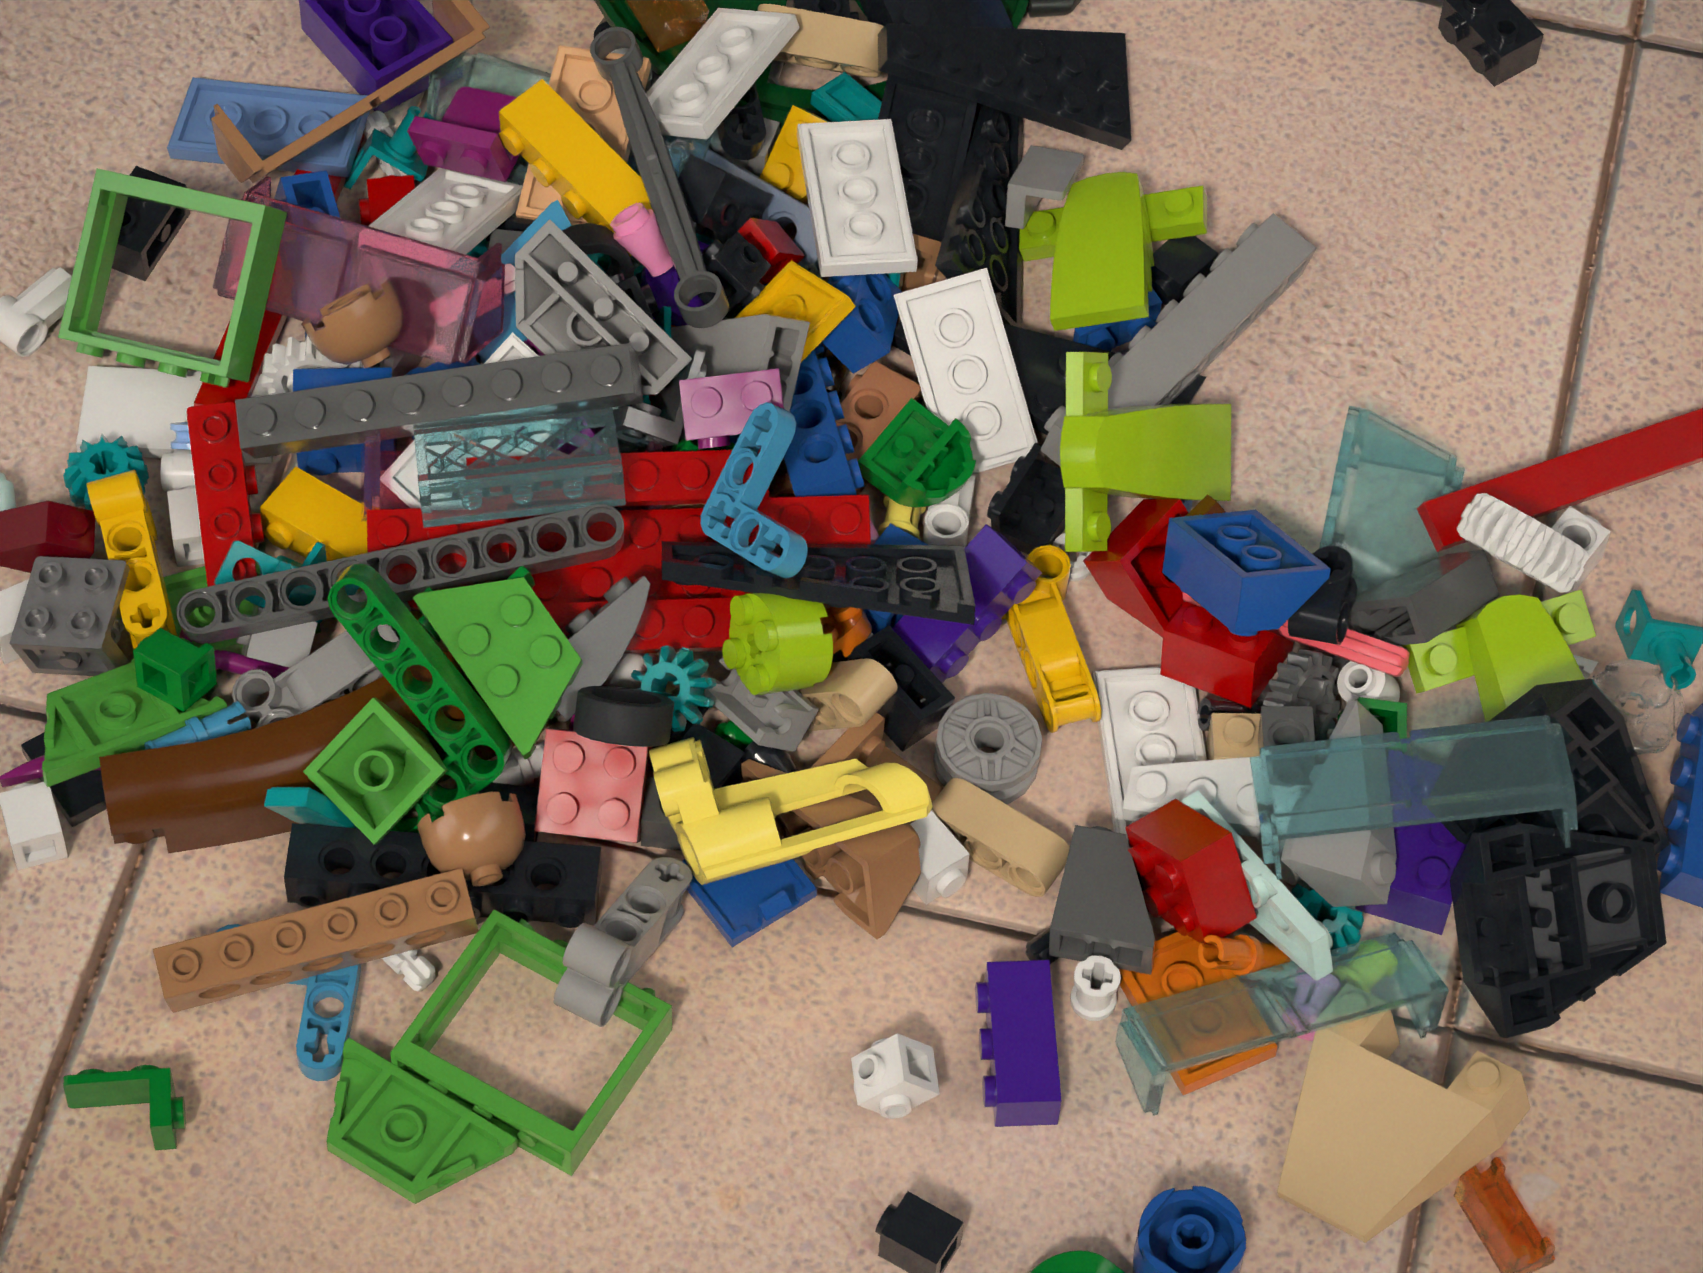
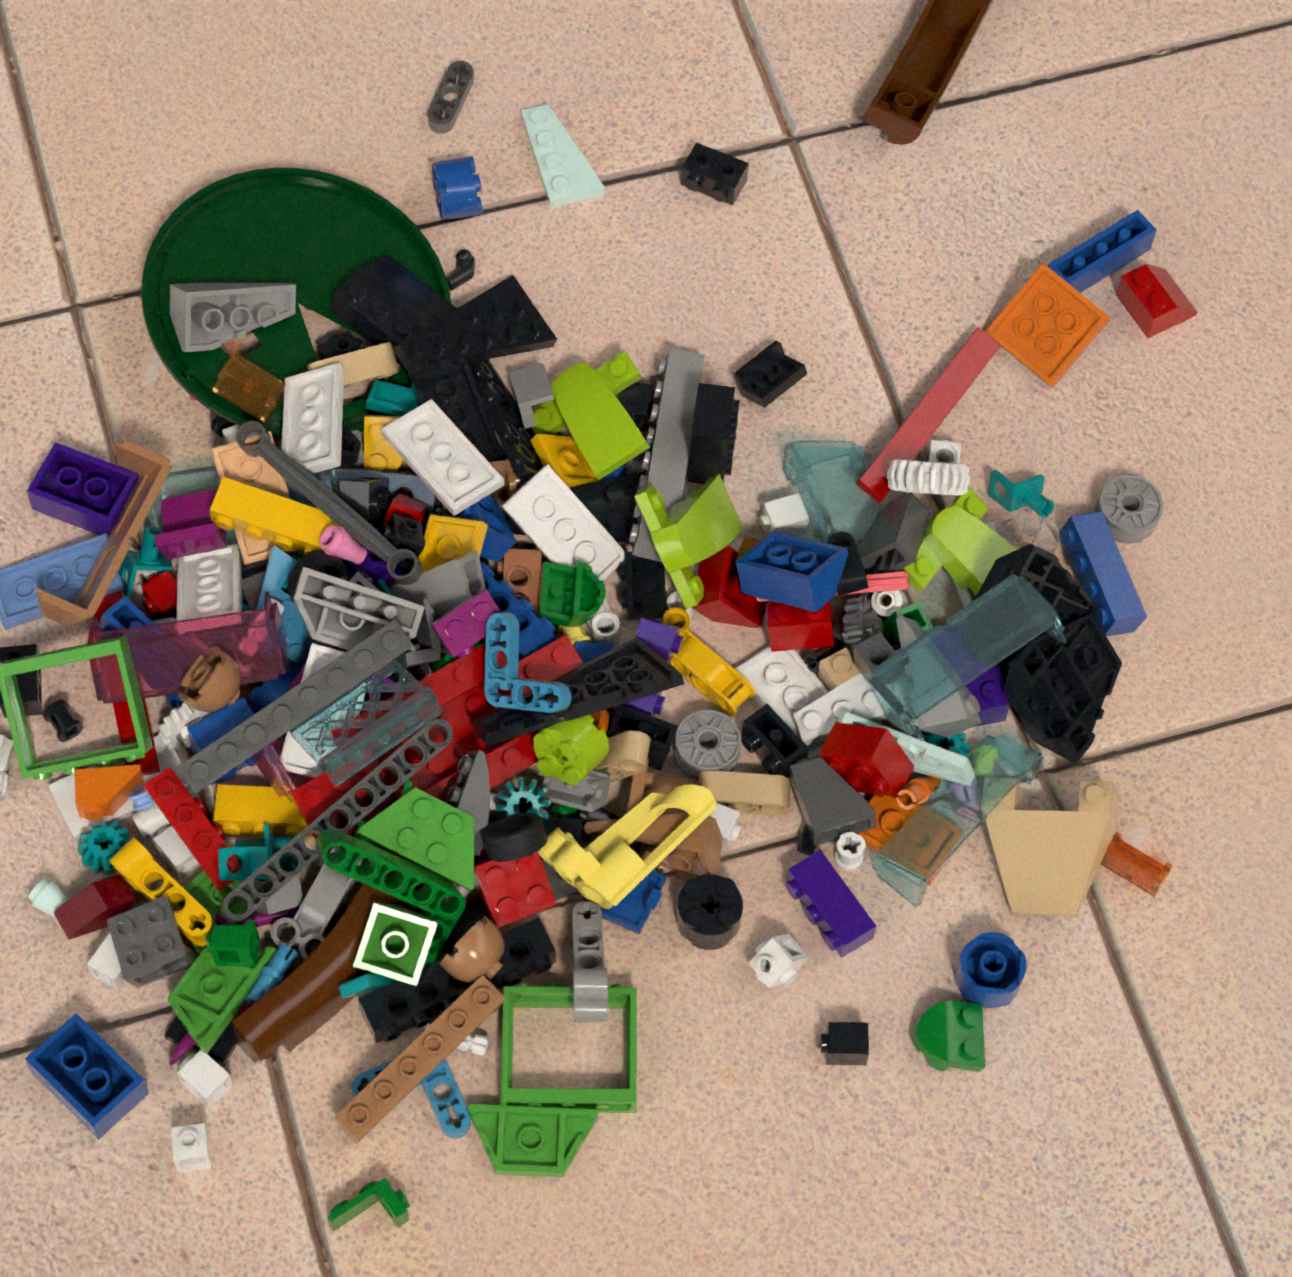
camera: 30 degrees left, 5 degrees up
(145, 400) = (105, 789): none -> orange slope
(160, 297) = (62, 720): none -> black bush
(843, 963) = (704, 895): none -> black brick
(1024, 287) = (564, 458): none -> yellow tile
(1077, 783) = (772, 741): none -> black brick
(1254, 345) = (713, 433): none -> black brick
(1296, 508) = (785, 516): none -> white brick
(1394, 317) = (769, 375): none -> black bracket

